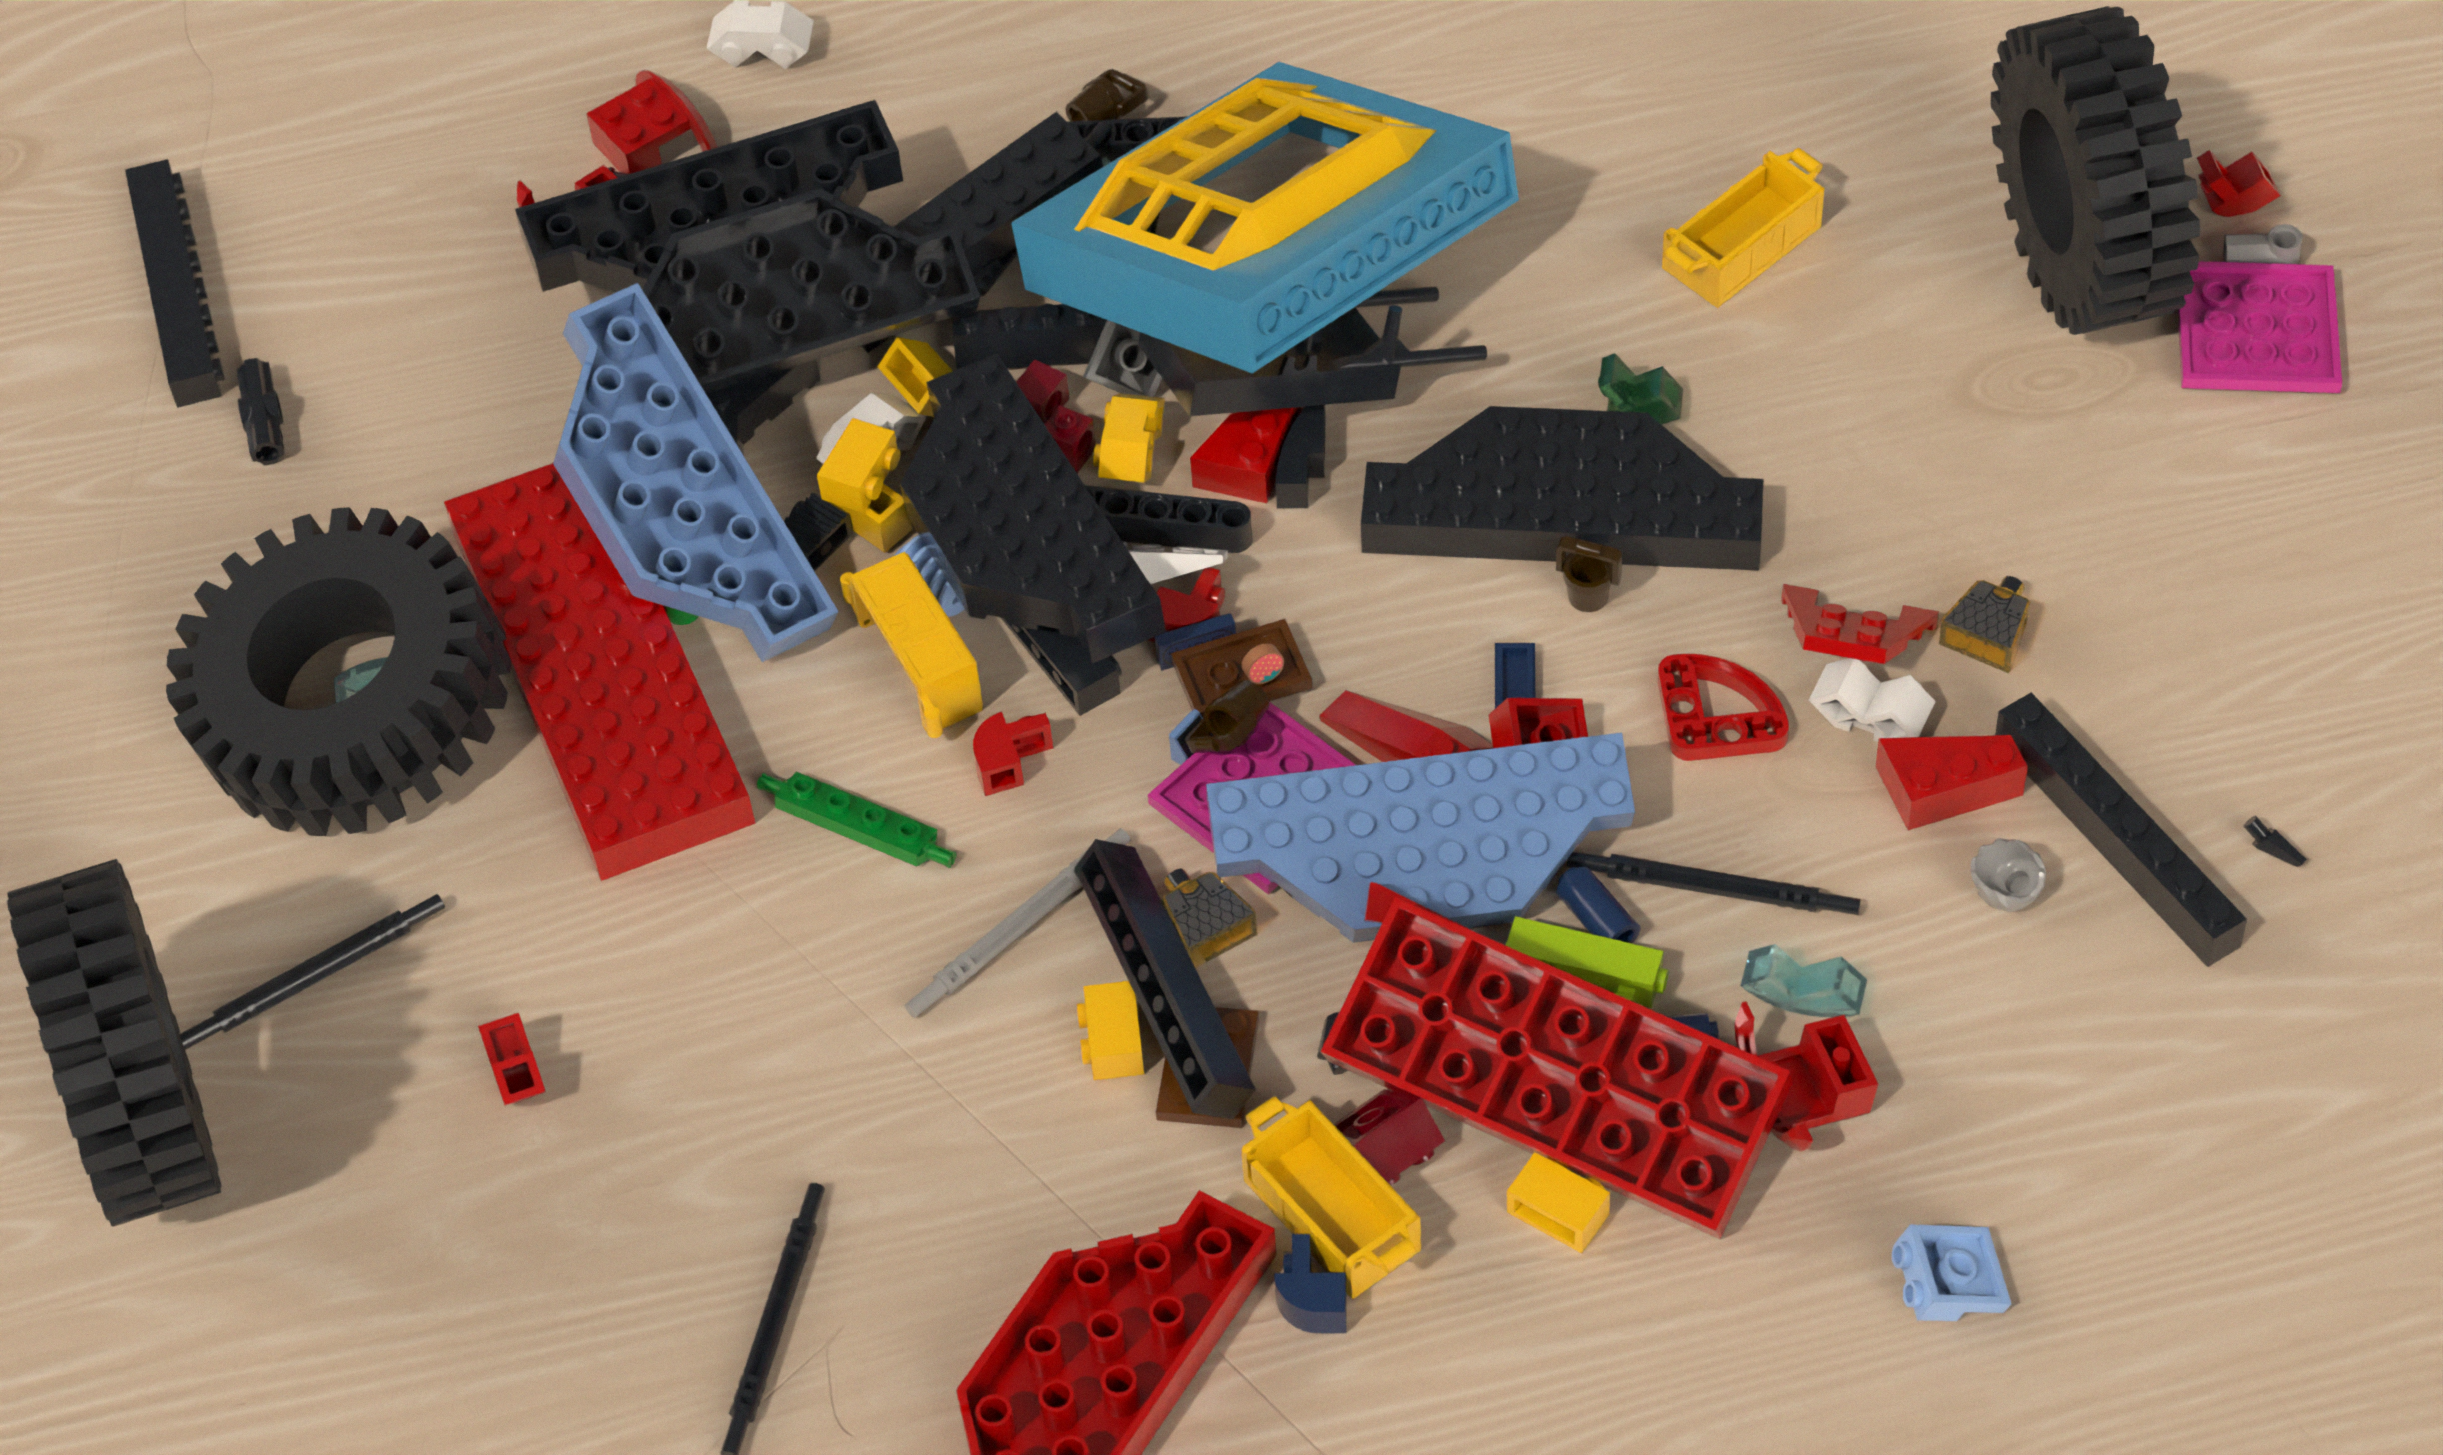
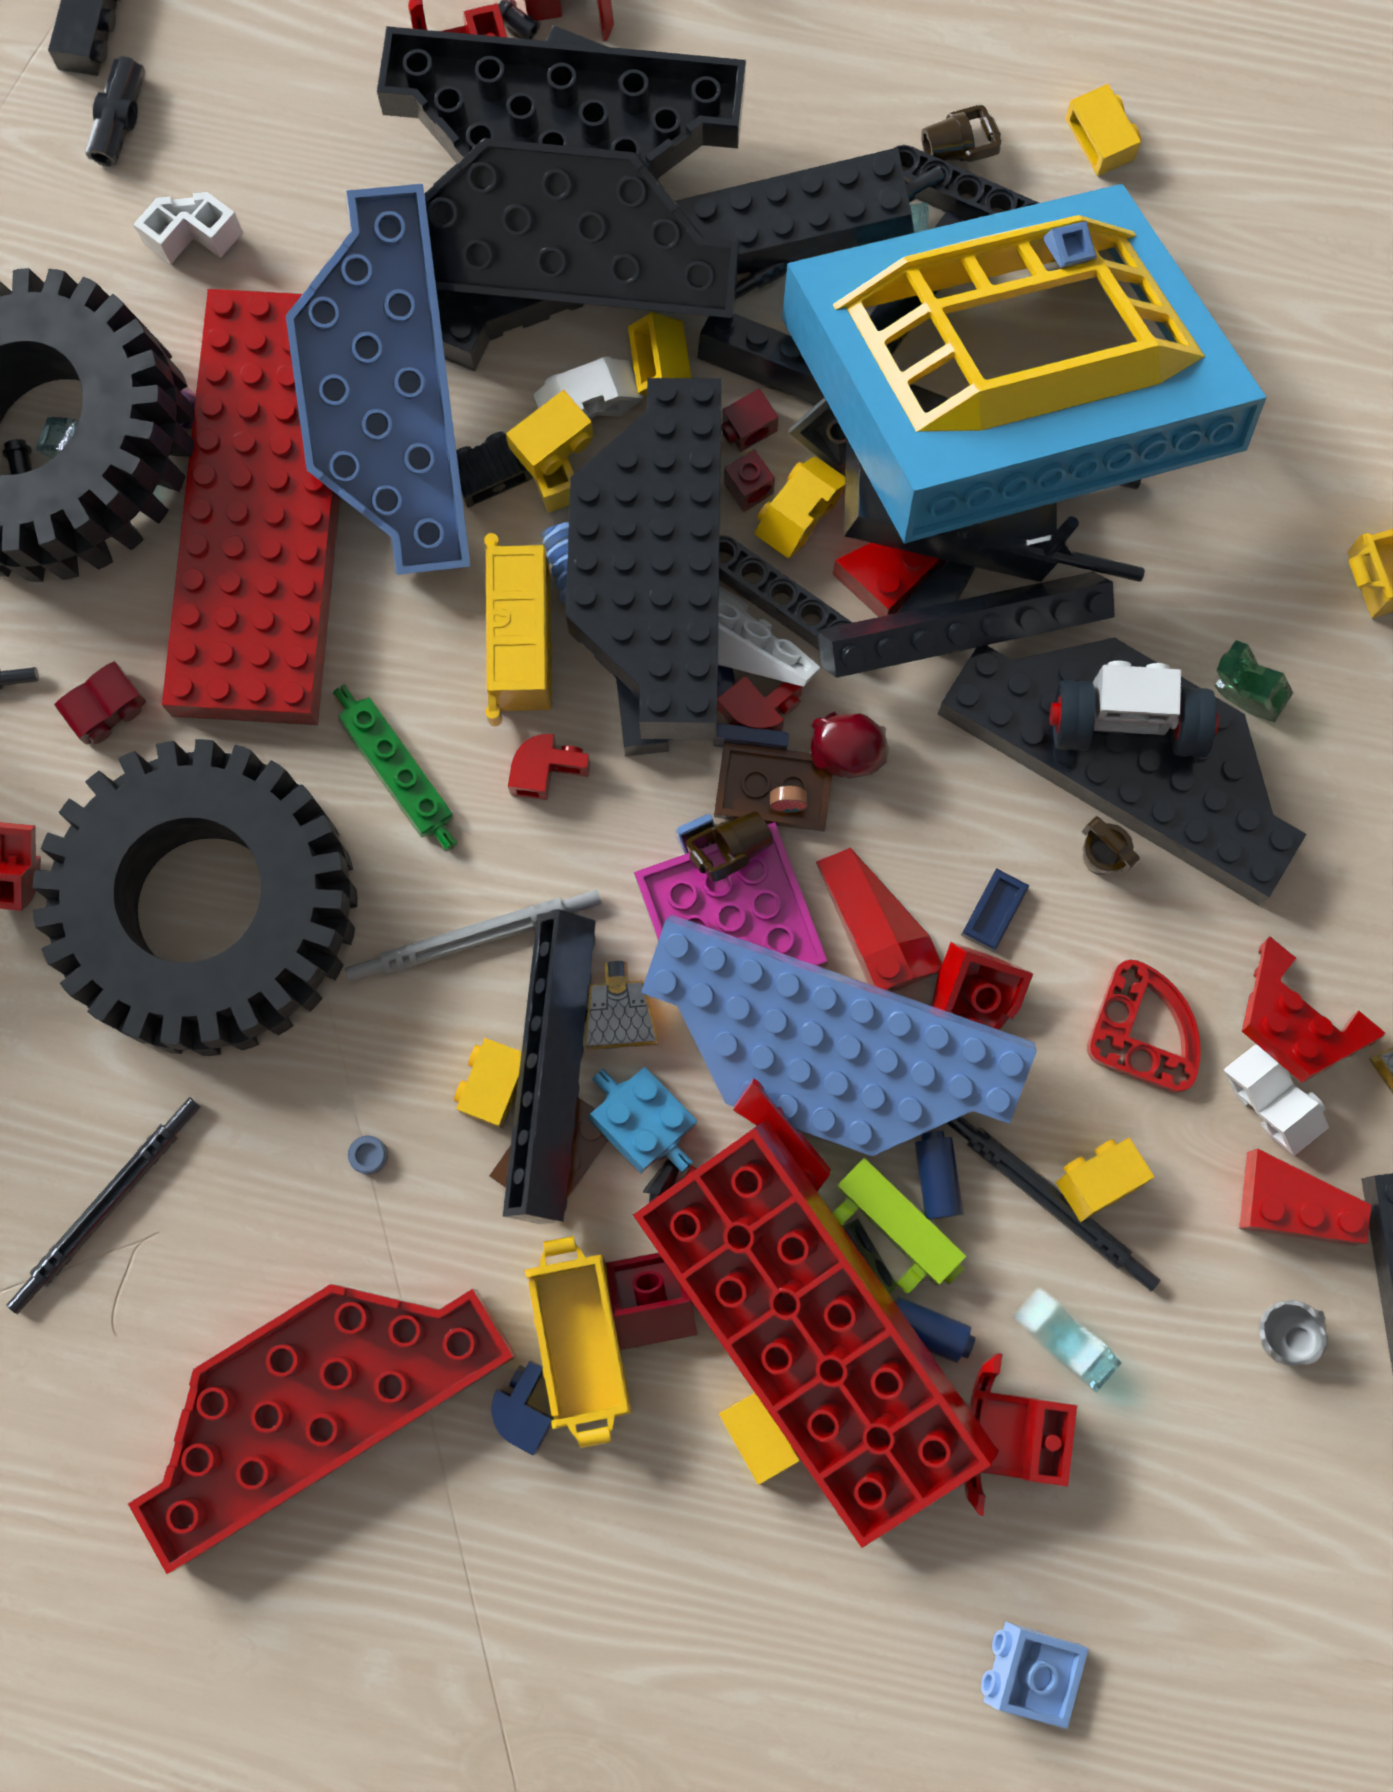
camera: 25 degrees right, 25 degrees up
(404, 456) = (172, 224): none -> white brick
(524, 892) = (101, 704): none -> dark red brick
(741, 1081) = (124, 835): none -> black tyre
(1021, 1154) = (367, 1155): none -> sand blue tile
(1233, 43) = (1103, 129): none -> yellow brick
(1263, 95) = (1070, 244): none -> medium blue slope
(1279, 991) = (642, 1120): none -> dark azure plate
(1292, 596) = (848, 745): none -> dark red helmet
(1344, 451) = (965, 624): none -> black brick
(1542, 430) = (1135, 702): none -> brick
(1754, 834) = (1104, 1178): none -> yellow brick

